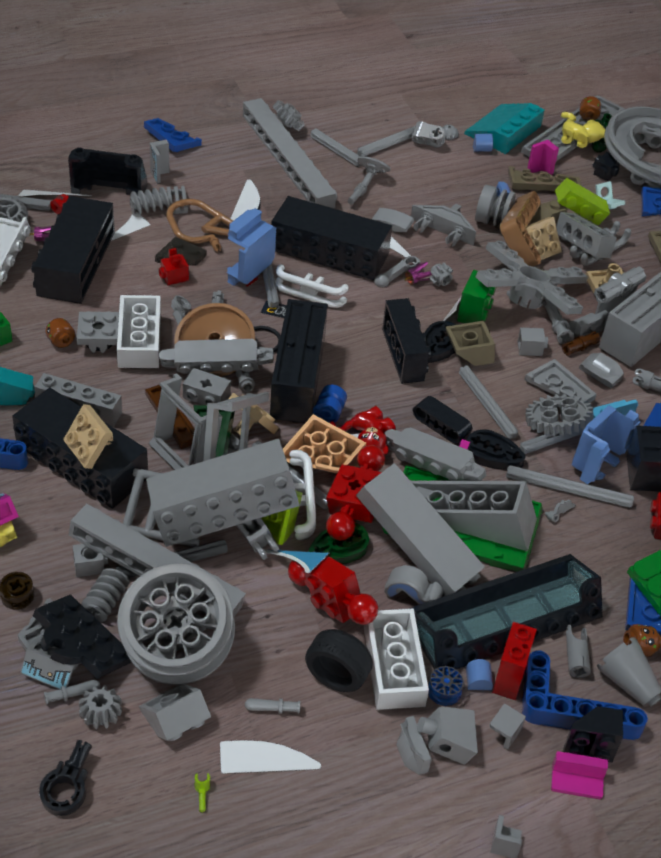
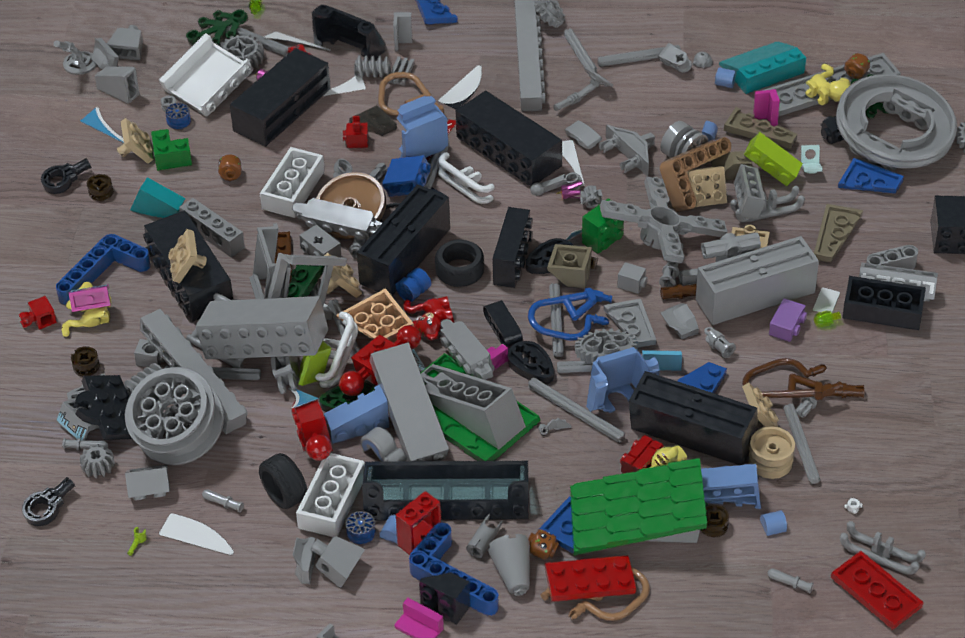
camera: 30 degrees right, 0 degrees up
(98, 330) = (257, 171): light grey piece -> none
(255, 295) = (405, 174): none -> blue brick
(361, 383) = (457, 250): none -> black tyre
(374, 555) = (358, 417): none -> medium blue wedge
(507, 370) = (591, 297): none -> blue piece
(508, 723) = (387, 570): light grey panel -> none

